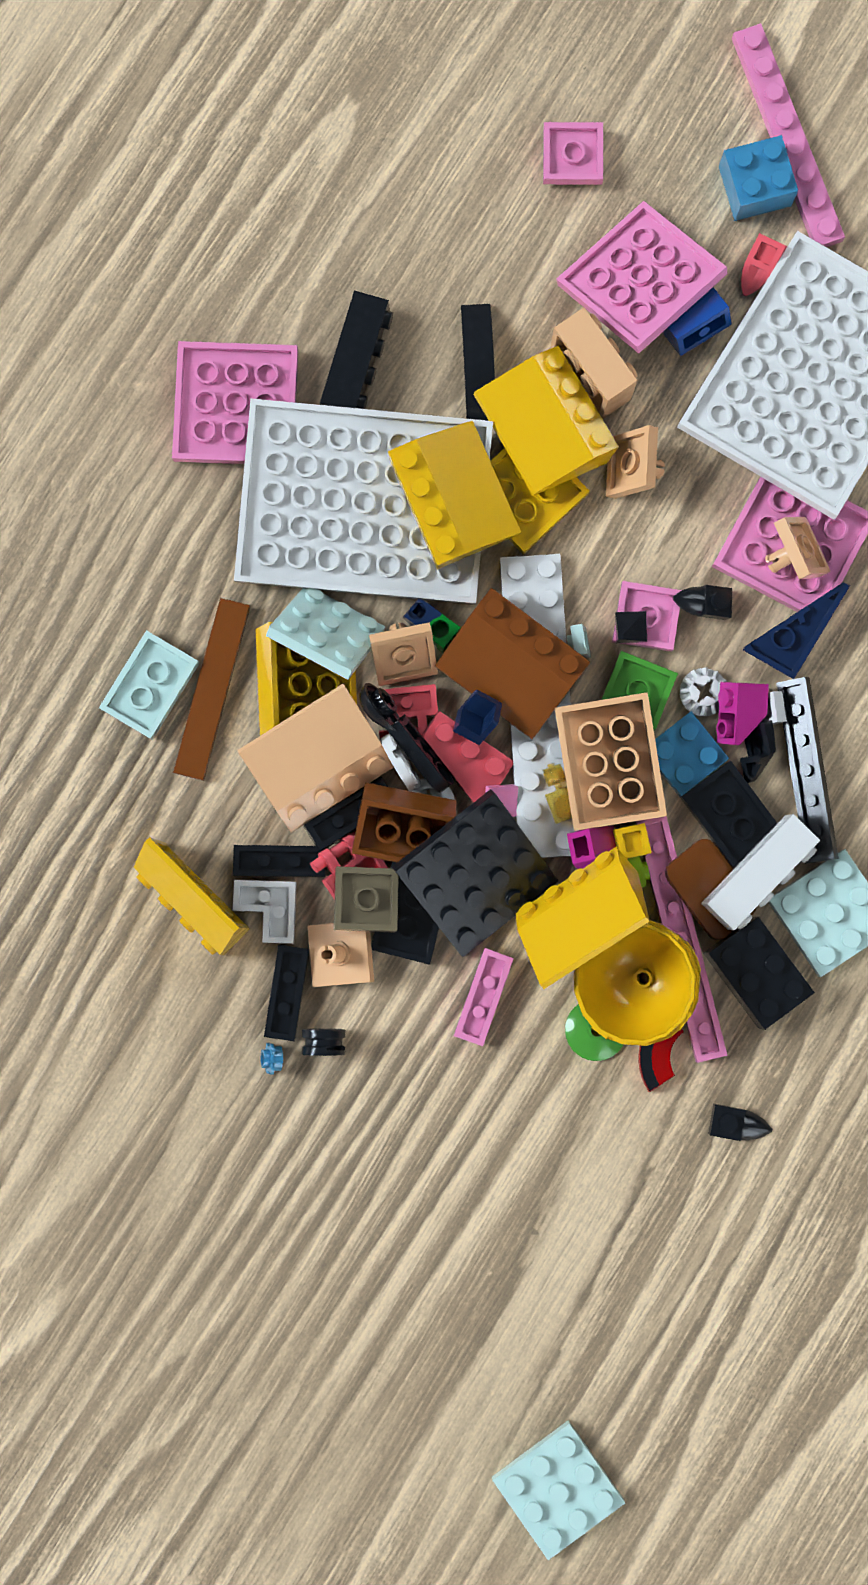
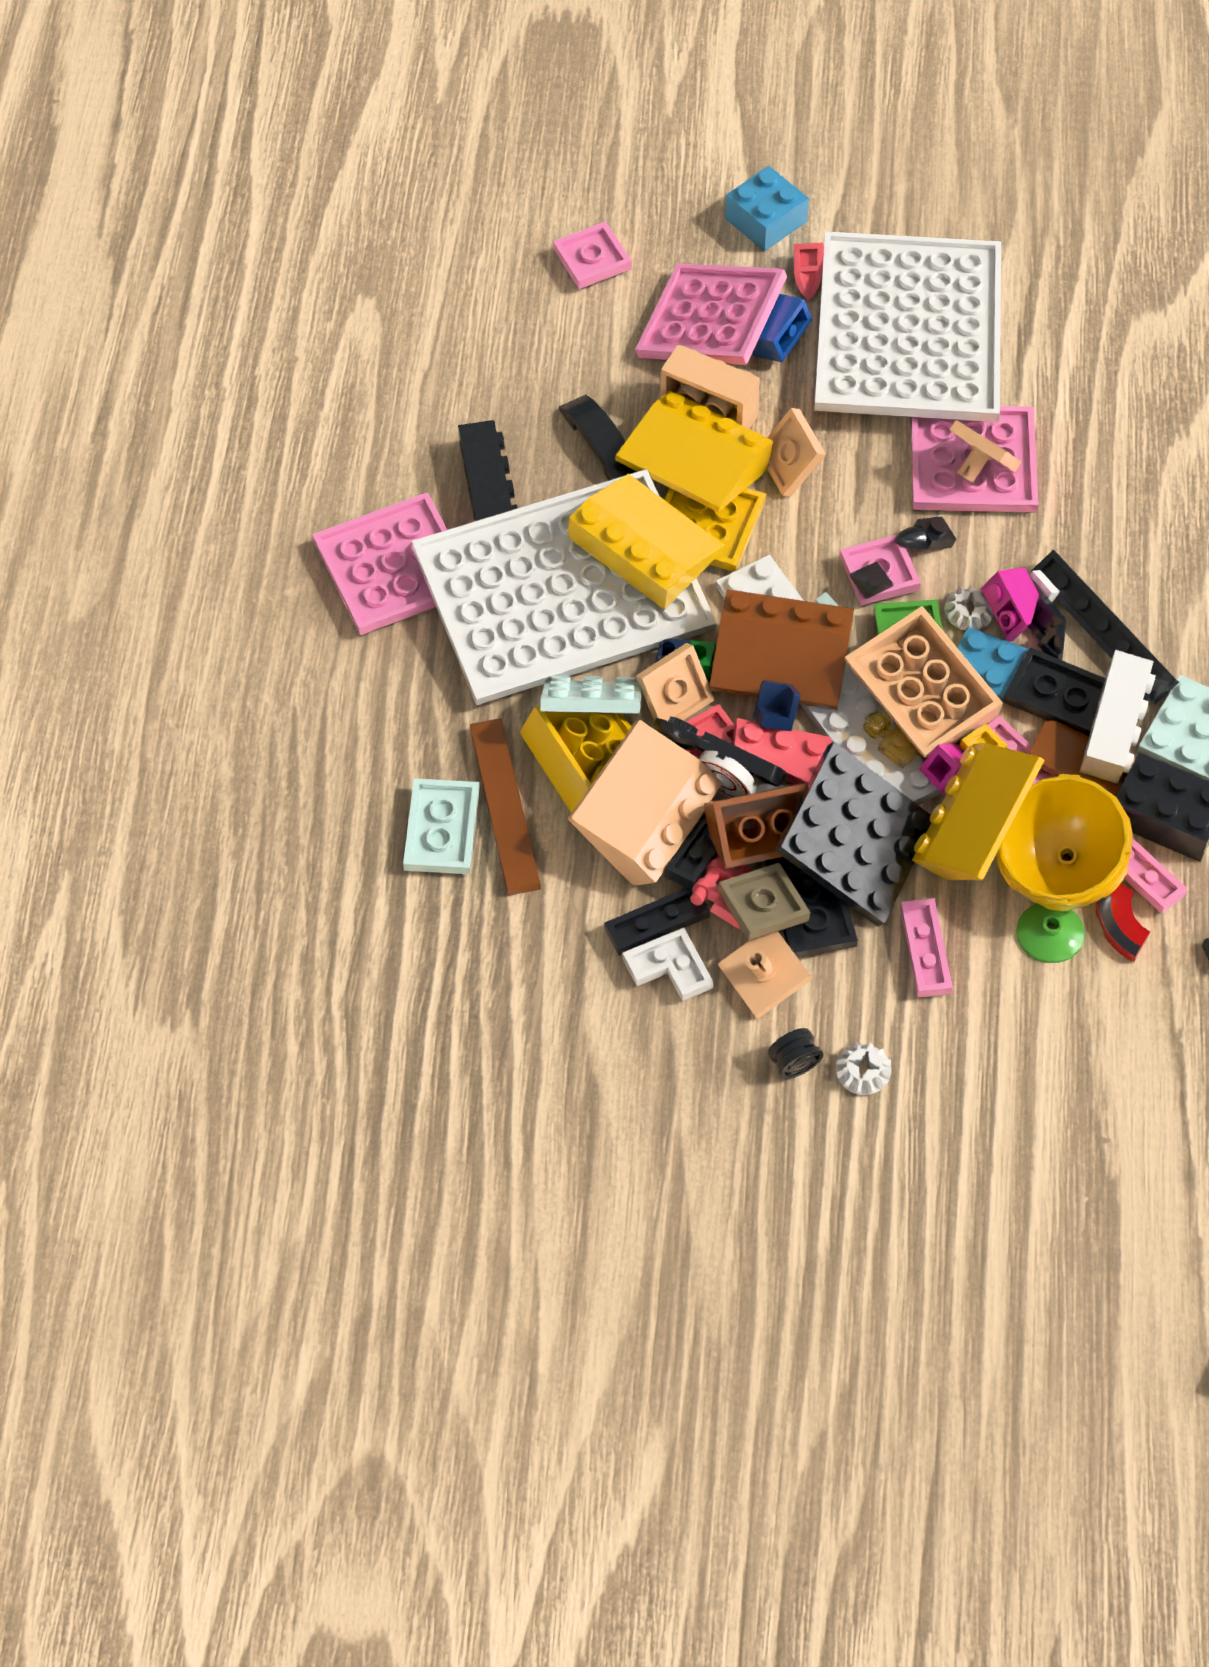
camera: 30 degrees left, 25 degrees down
(189, 896) = (590, 973): yellow slope -> none
(271, 1058) = (752, 1096): dark azure plate -> none
(286, 993) = (732, 1032): black plate -> none
(360, 1077) = (872, 1080): none -> white gear
(782, 120) = (752, 159): bright pink plate -> none
(792, 640) = (1022, 533): dark blue wing -> none

